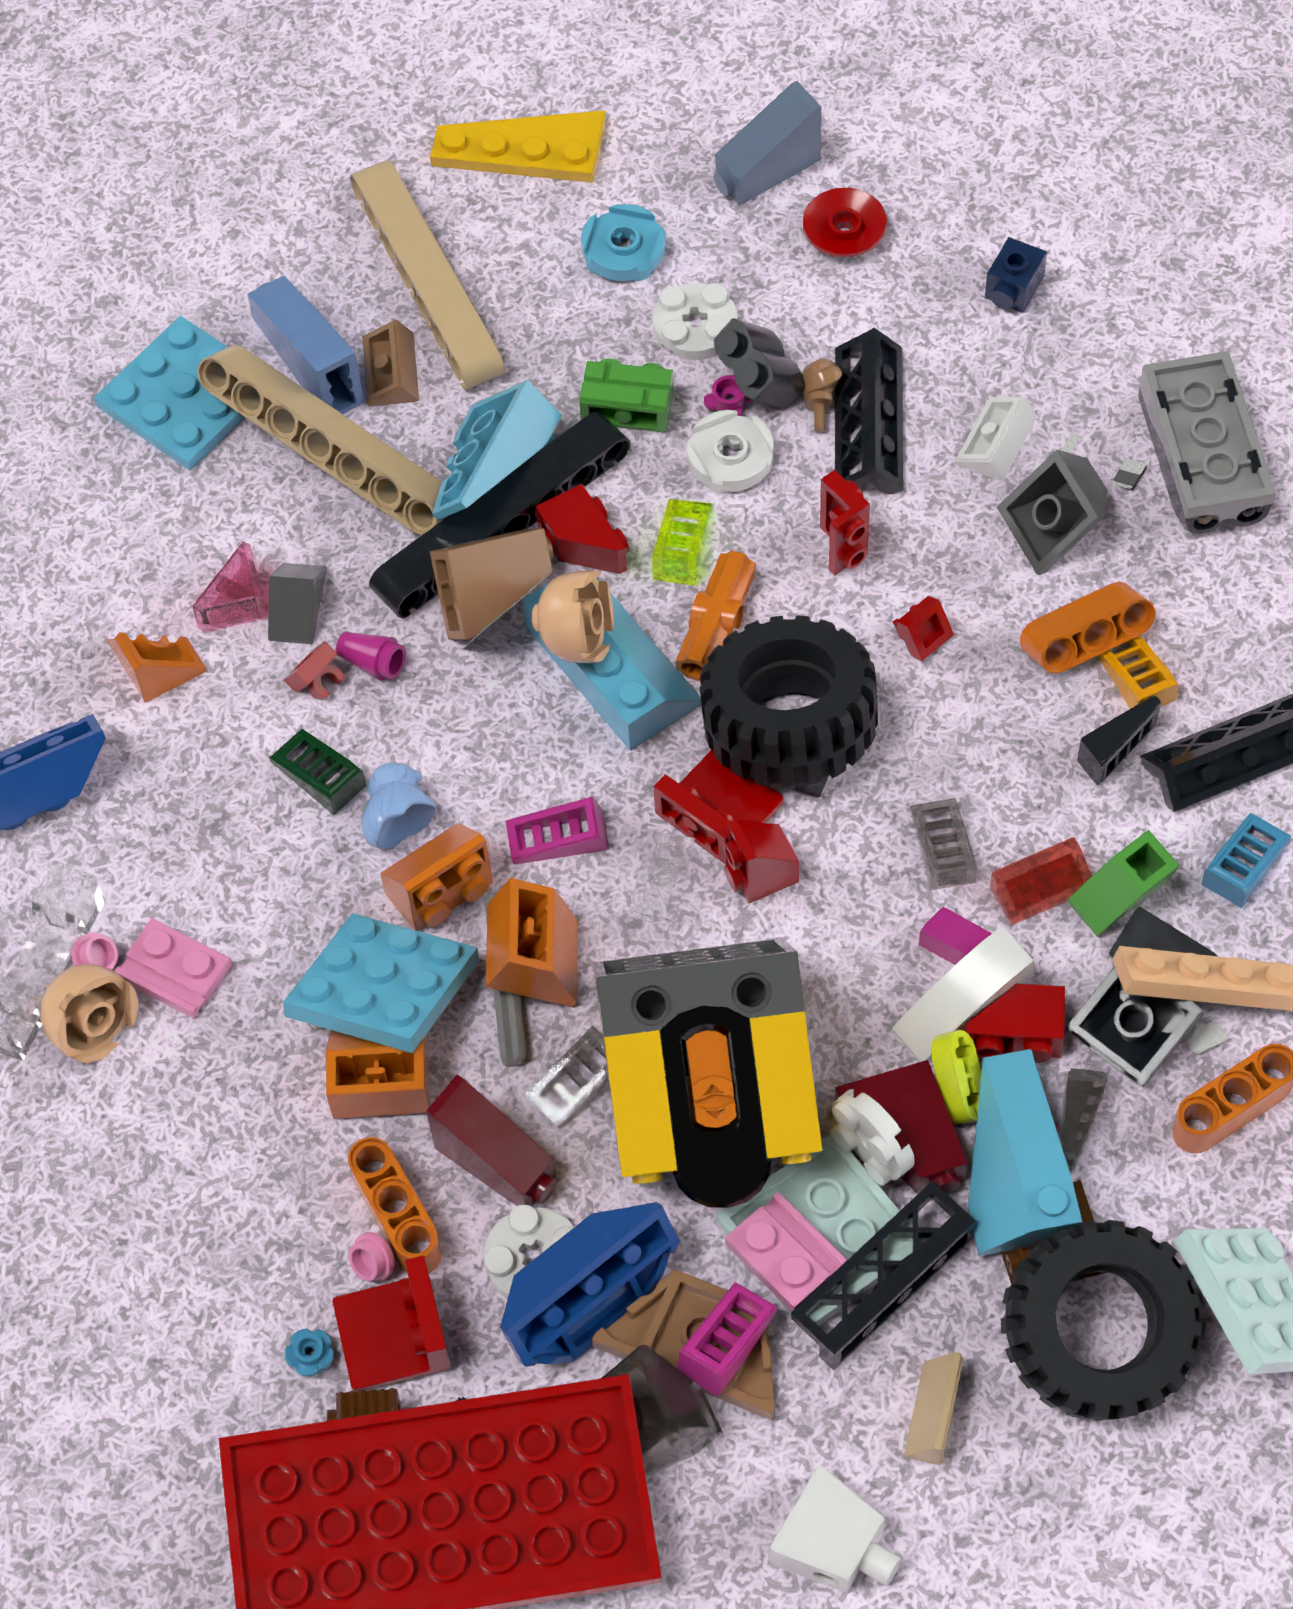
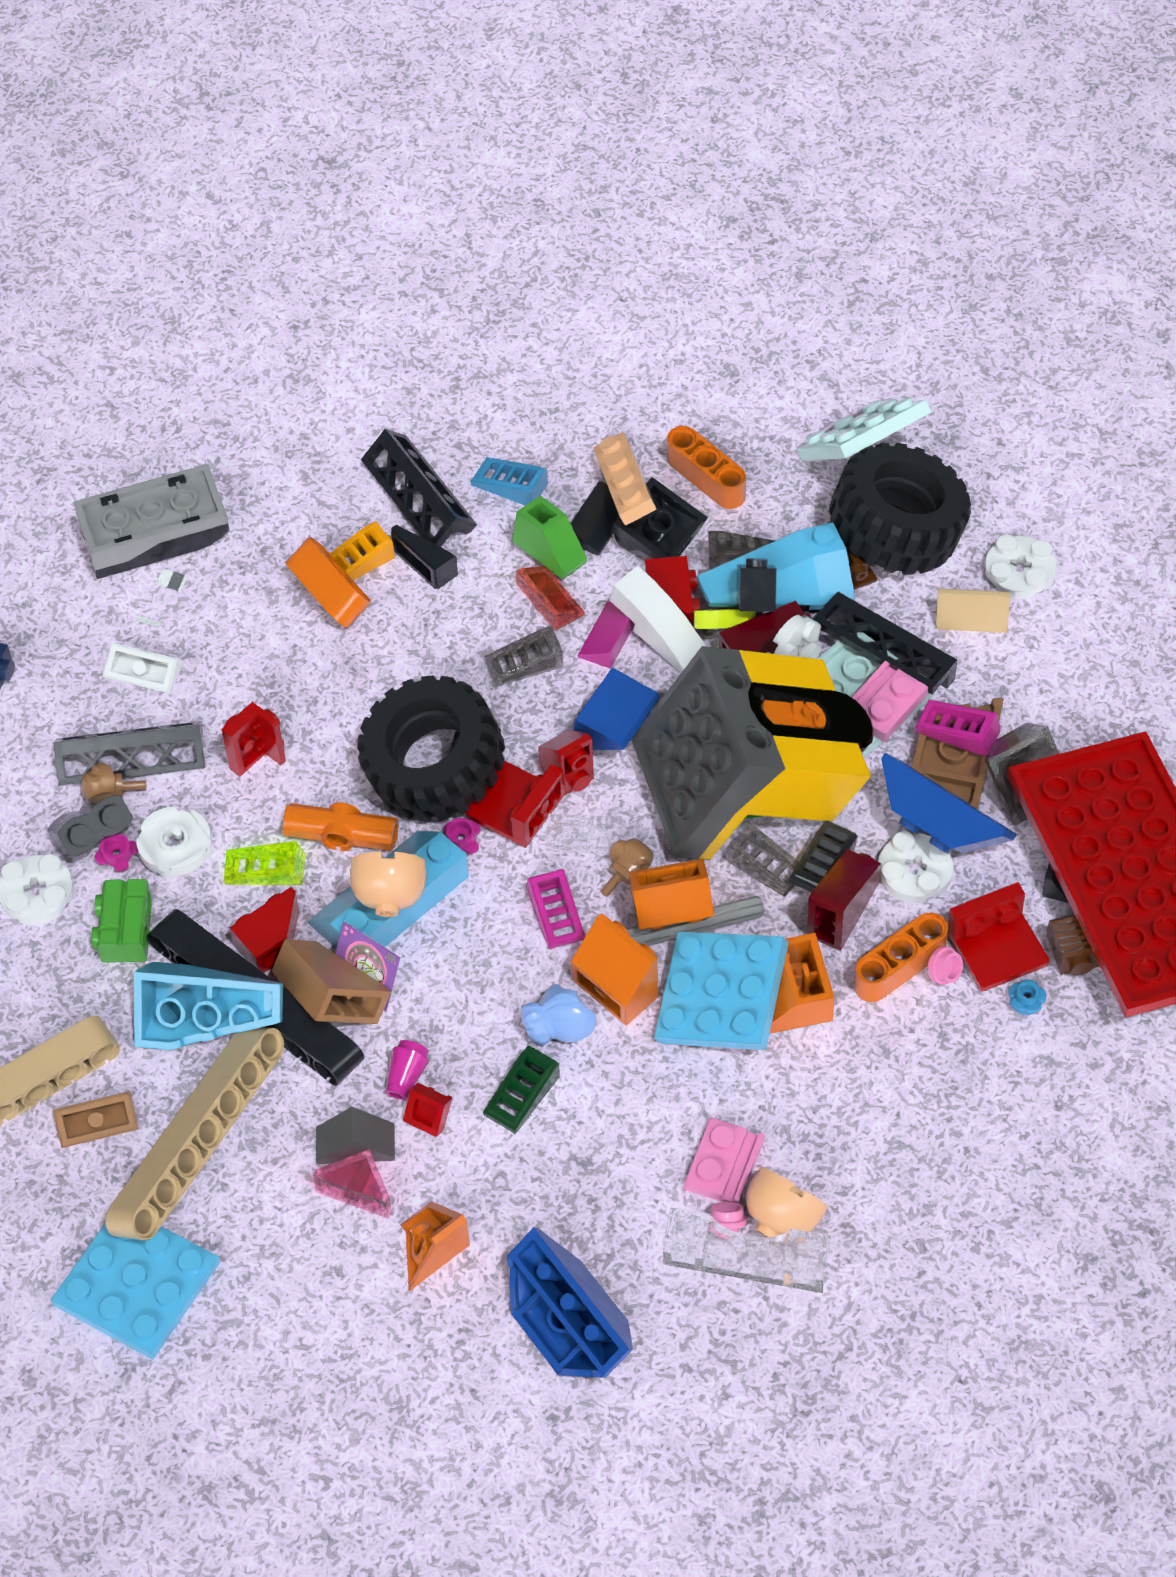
camera: 100 degrees left, 5 degrees down
(307, 344) = (85, 1174): medium blue slope -> none
(565, 1123) = (825, 849): none -> black slope
(603, 919) = (625, 858): none -> medium nougat piece
(682, 732) = (465, 828): none -> dark pink plate
(815, 915) = (615, 711): none -> blue slope
(832, 1536) = (1078, 656): white torso -> none
(924, 628) = (338, 688): red tile -> none
(979, 1103) = (756, 585): none -> black brick
(1028, 1521) = (1023, 549): none -> white plate
(1054, 508) = (222, 611): dark grey slope -> none

